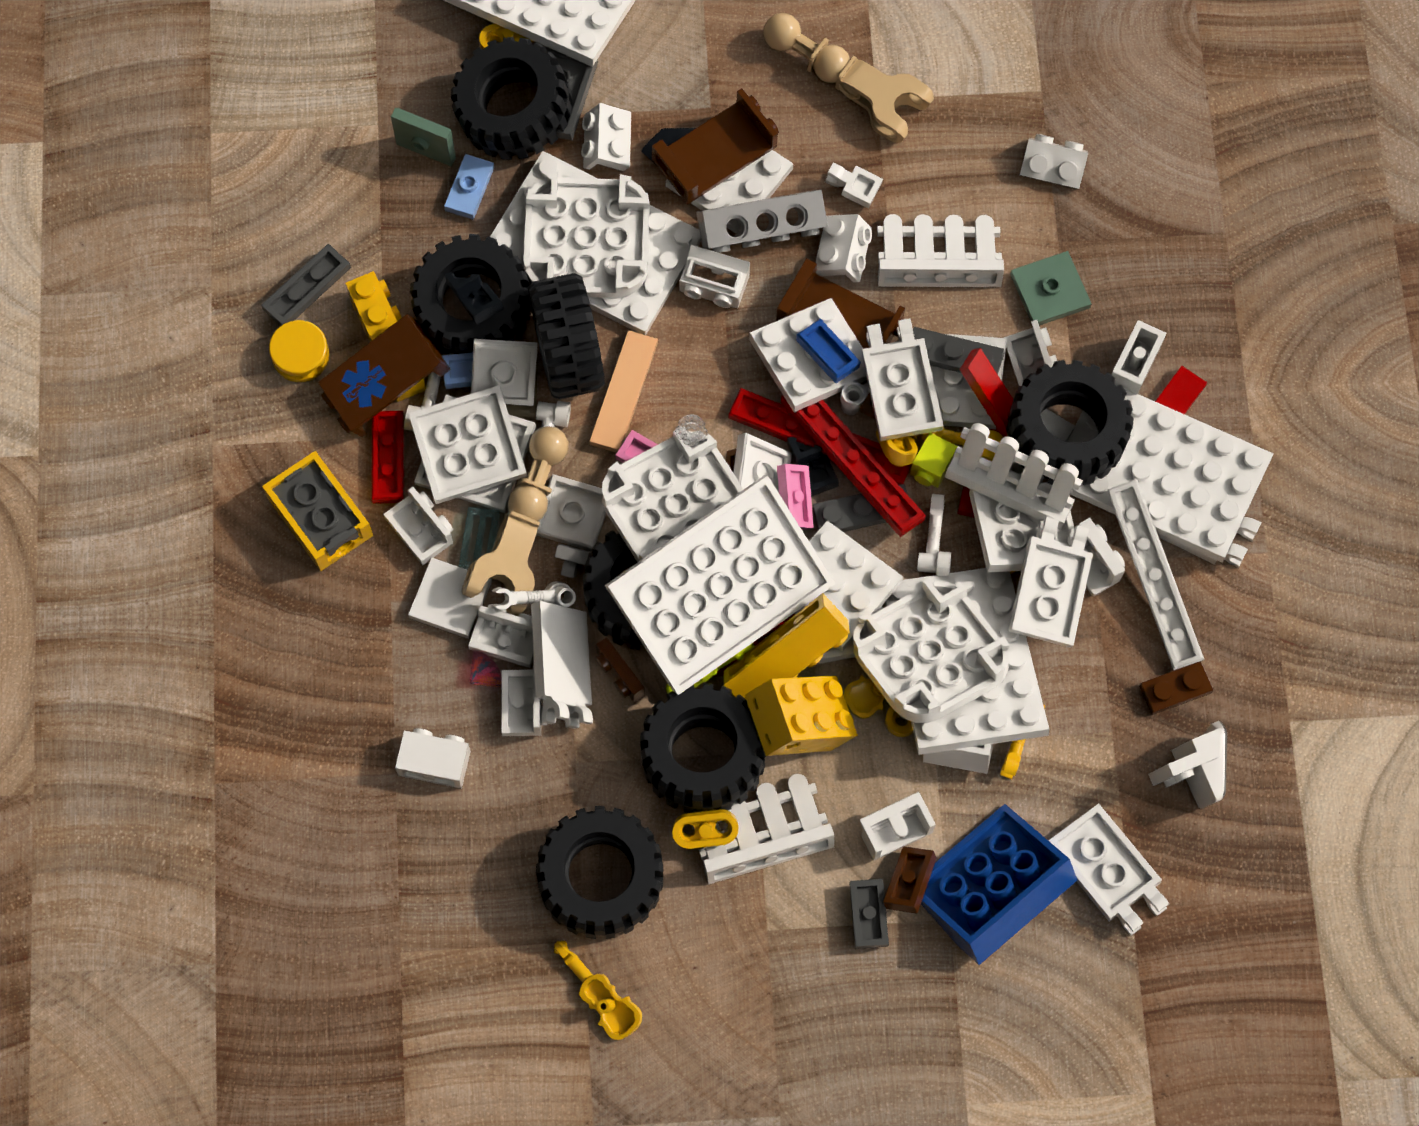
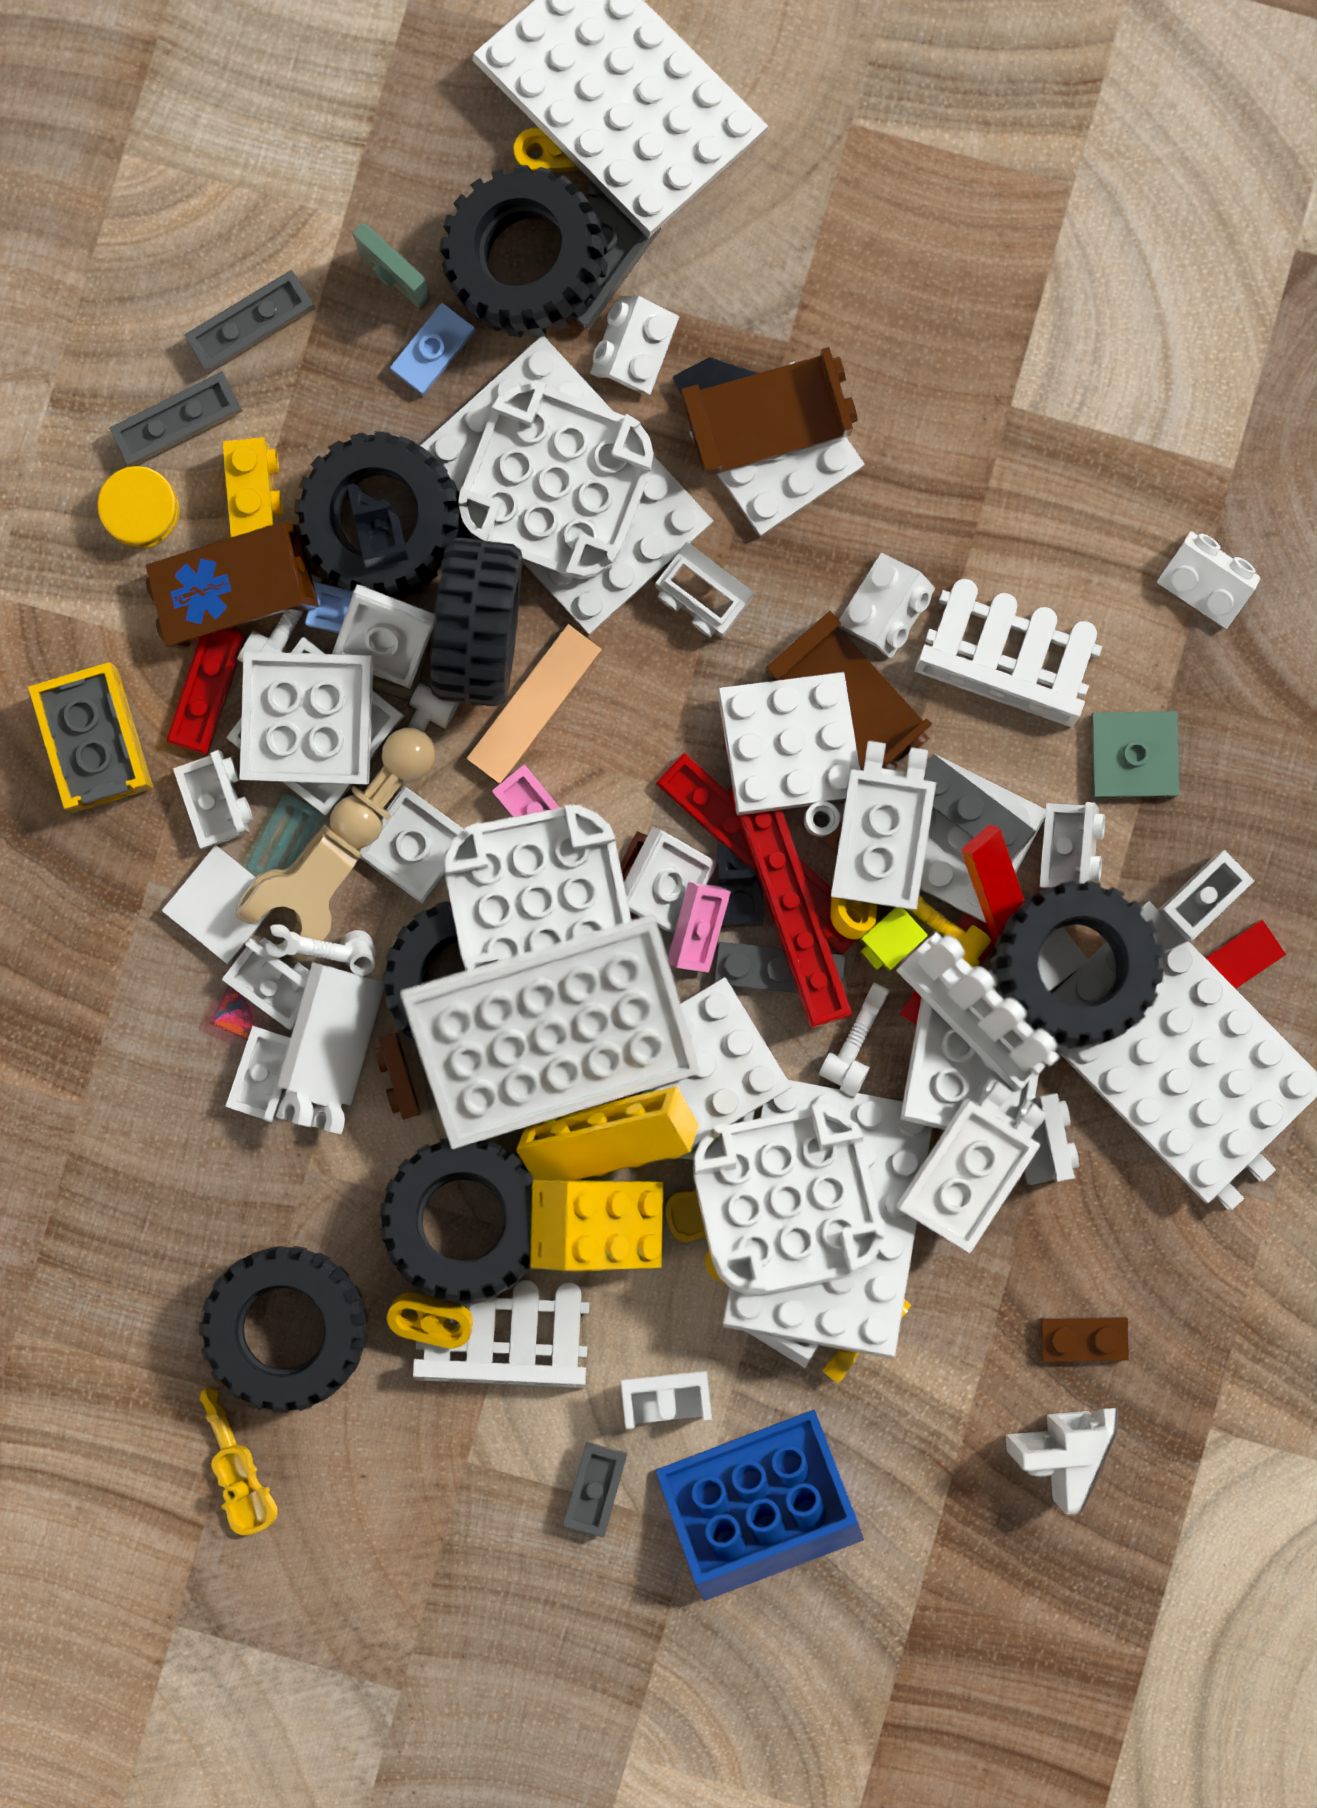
camera: 20 degrees right, 15 degrees up
(336, 207) = (249, 321): none -> dark grey plate
(433, 758) = (131, 1108): white brick -> none
(572, 558) = (391, 908): light grey tile -> none
(688, 422) = (583, 803): clear plate -> none
(807, 204) = (775, 519): light grey brick -> none
(828, 351) = (808, 752): blue tile -> none
(854, 78) = (987, 368): tan piece -> none
(858, 186) = (939, 526): white plate -> none
(910, 880) = (659, 1468): reddish brown plate -> none
(1110, 868) = (909, 1533): white tile -> none
(1155, 574) = (1113, 1190): white tile -> none

